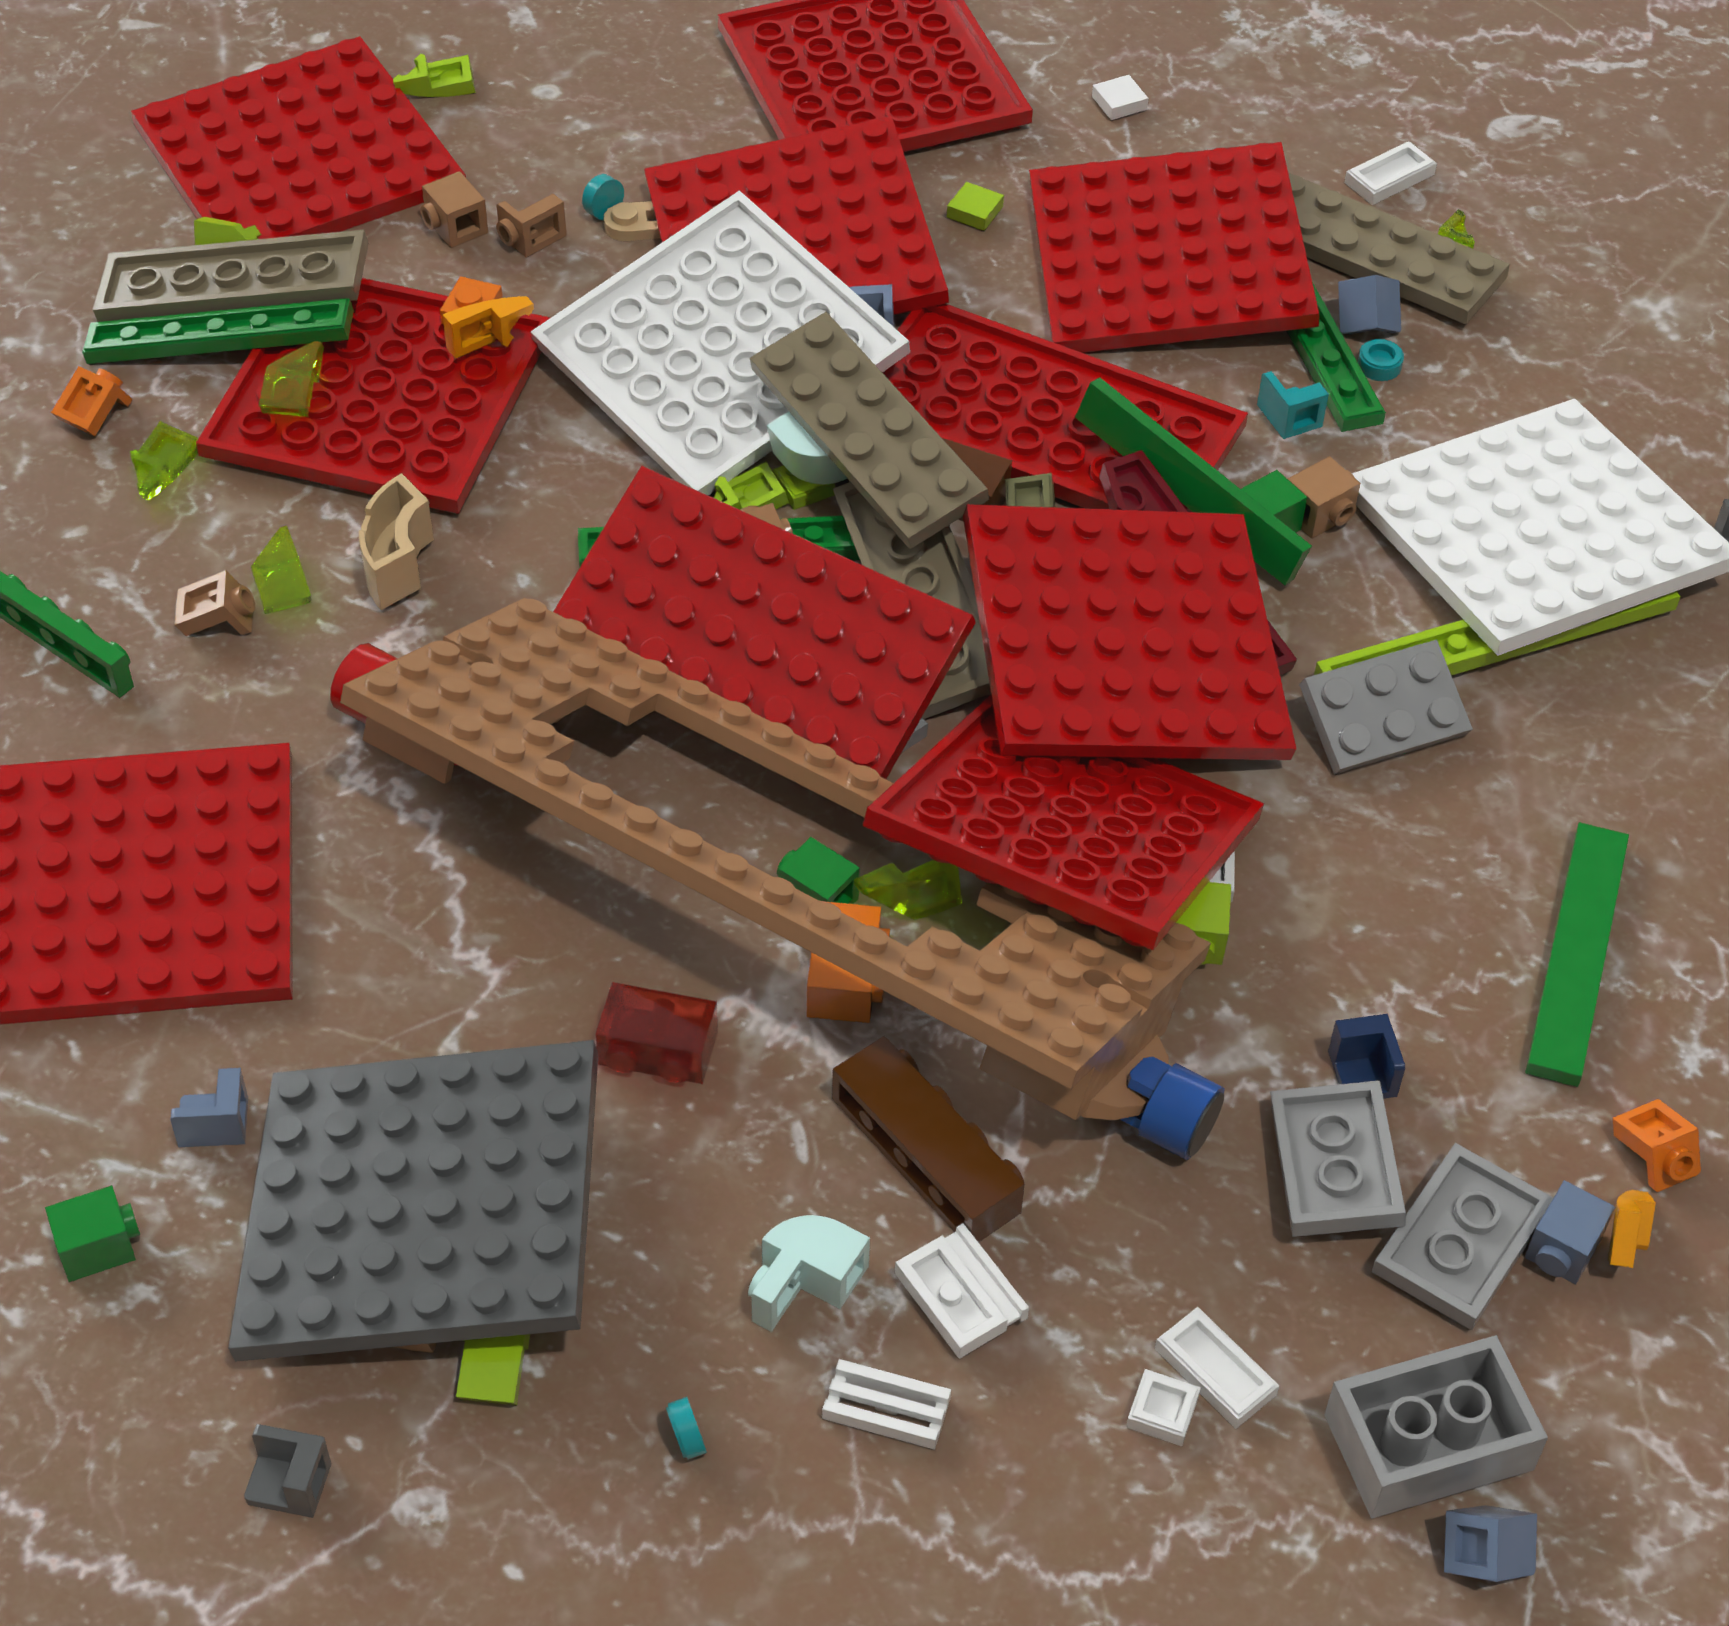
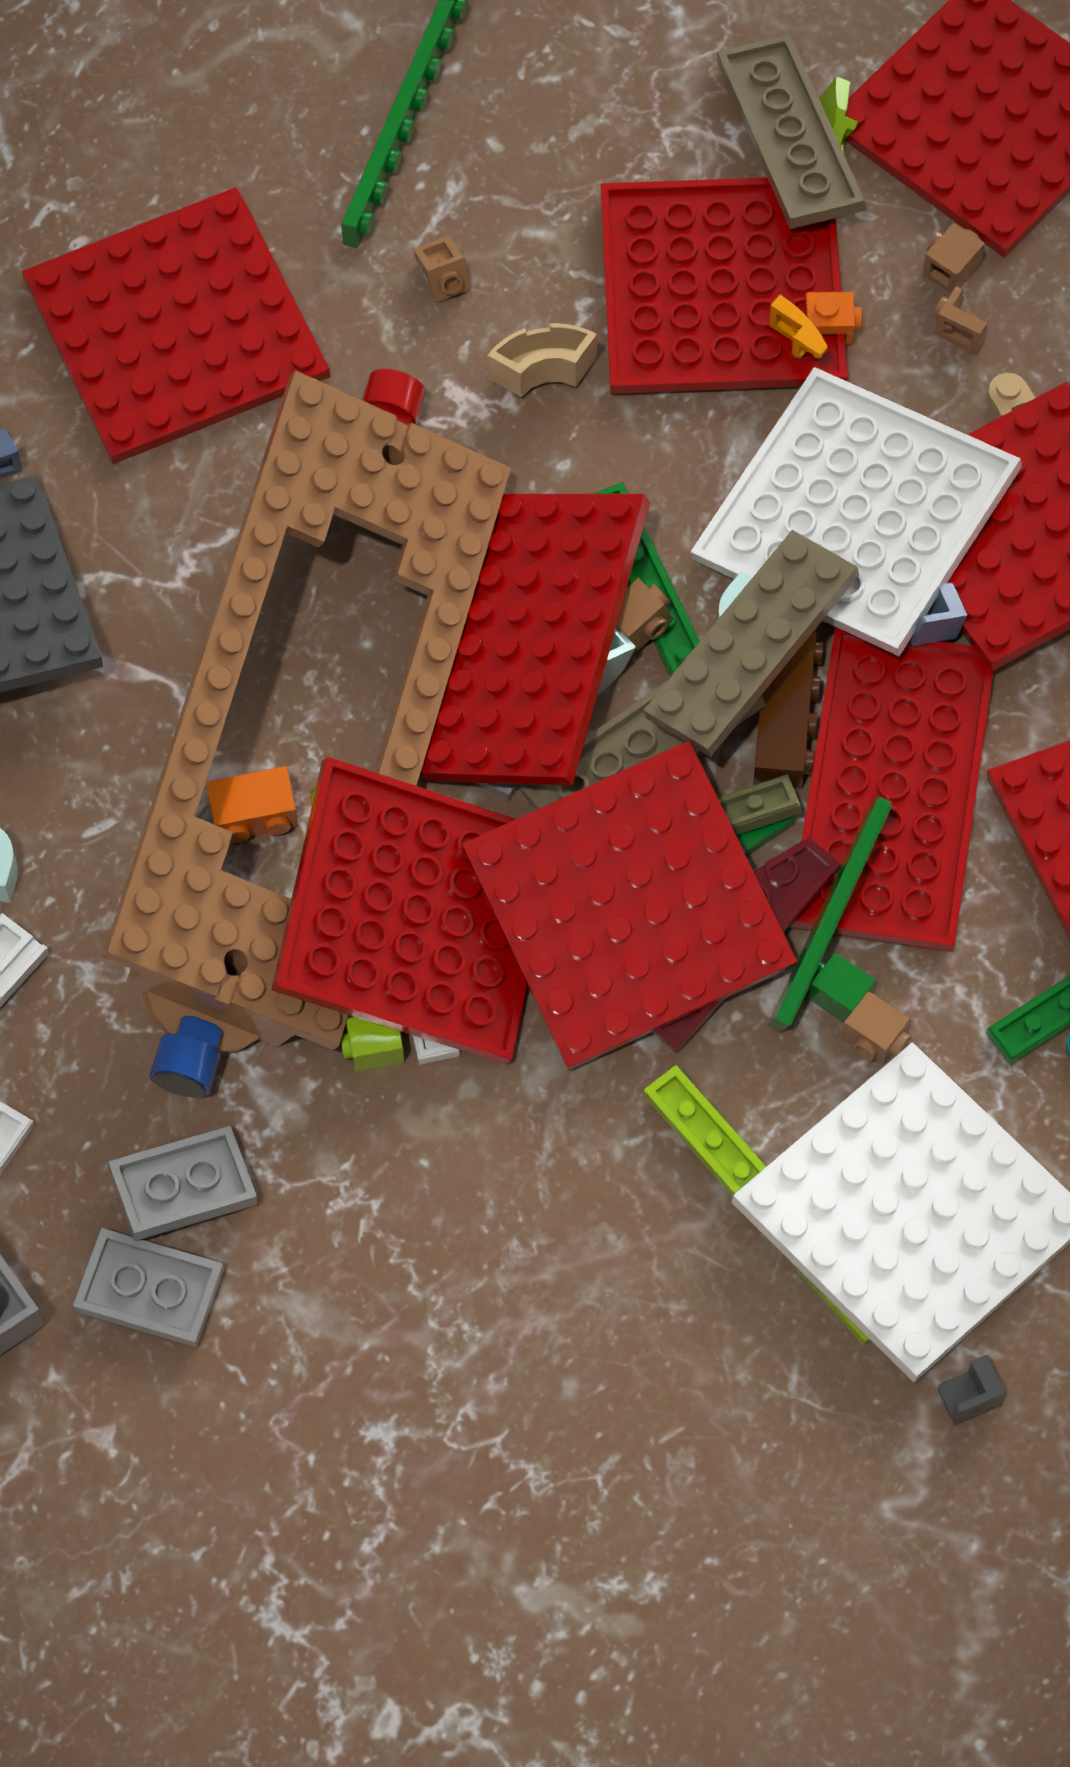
camera: 75 degrees right, 15 degrees up
(90, 399) = (623, 92): orange bracket -> none
(162, 458) = (583, 168): clear neon green slope -> none
(218, 331) = (729, 148): green tile -> none
(280, 574) = (494, 294): clear neon green slope -> none
(290, 381) = (683, 218): clear neon green slope -> none
(602, 194) = (1021, 361): teal tile -> none
(657, 1033) = (145, 701): clear red brick -> none
(752, 488) = (701, 586): lime slope -> none
(820, 873) = (310, 755): green brick -> none
(928, 1139) = (81, 936): reddish brown brick -> none
(1292, 409) = (987, 981): teal panel -> none
(1366, 1052) = (287, 1189): dark blue panel -> none
(1385, 706) = (646, 1128): light grey plate -> none
(1569, 1232) = (169, 1359): sand blue brick -> none
(1577, 955) = (451, 1327): green tile -> none
(1631, 1227) = (194, 1397): light orange slope -> none
(1663, 1141) = (276, 1412): orange bracket -> none

